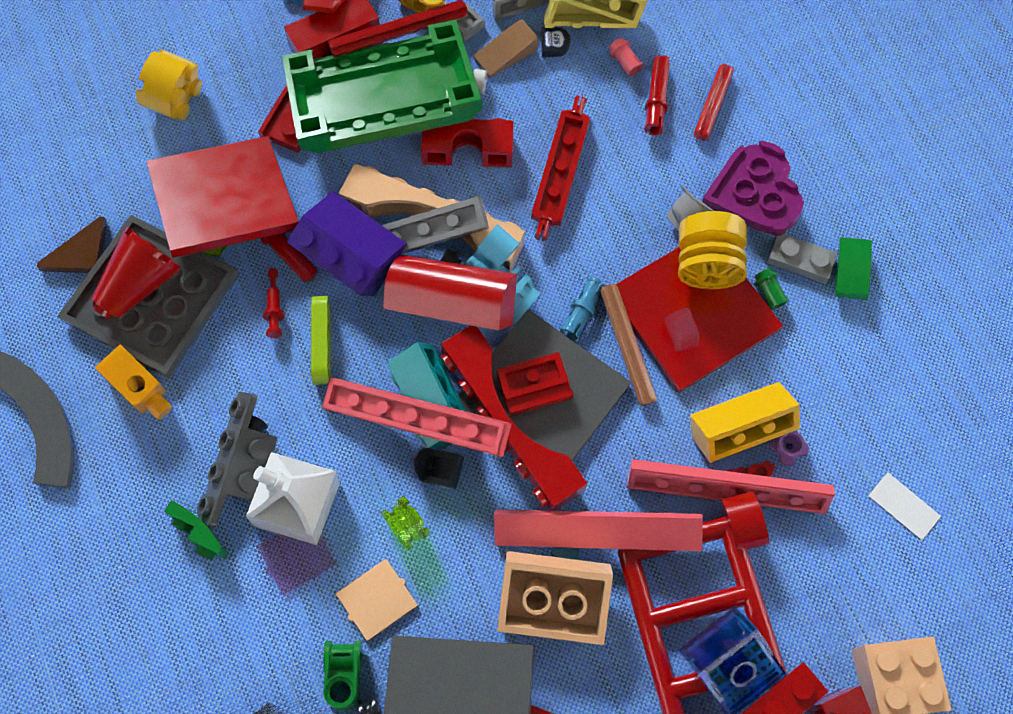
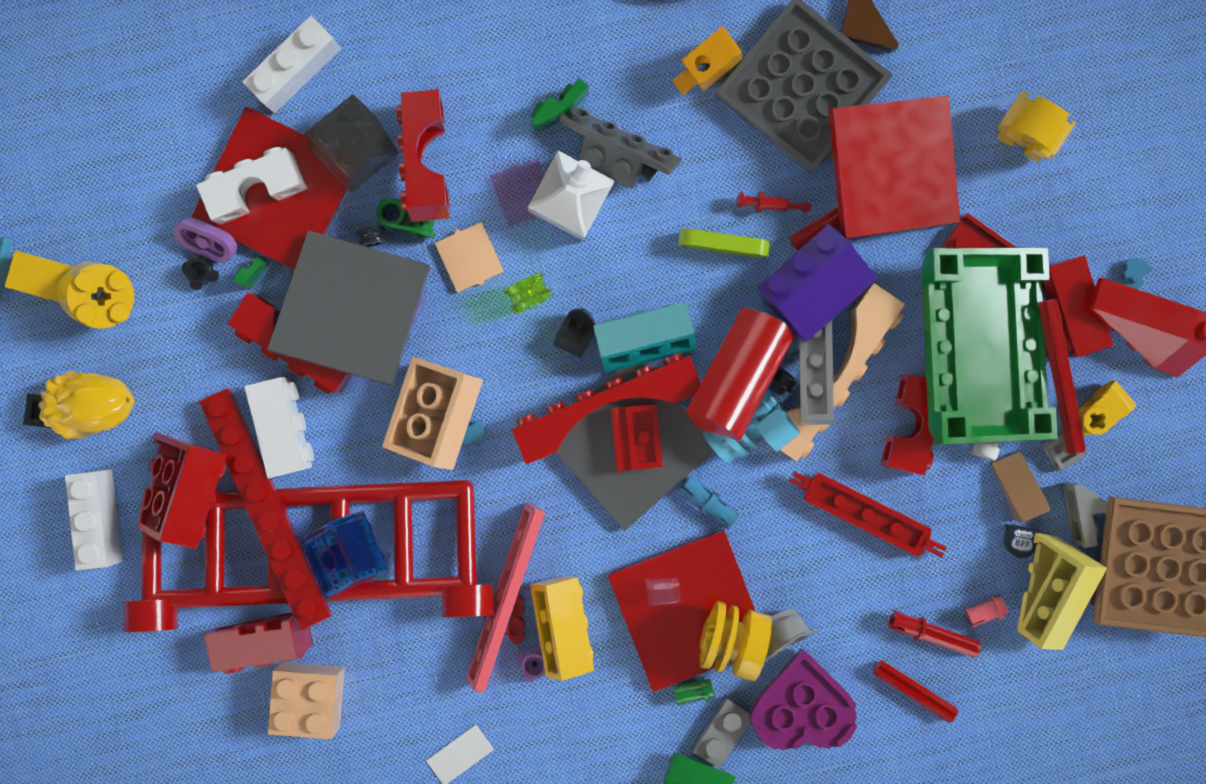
camera: 100 degrees right, 20 degrees up
(131, 275) = (819, 70): red cone -> none
(309, 651) = (422, 121): none -> red arch
(417, 416) = (622, 320): coral tile -> none
(598, 529) = (486, 466): coral tile -> none
(628, 345) = (662, 536): nougat axle -> none

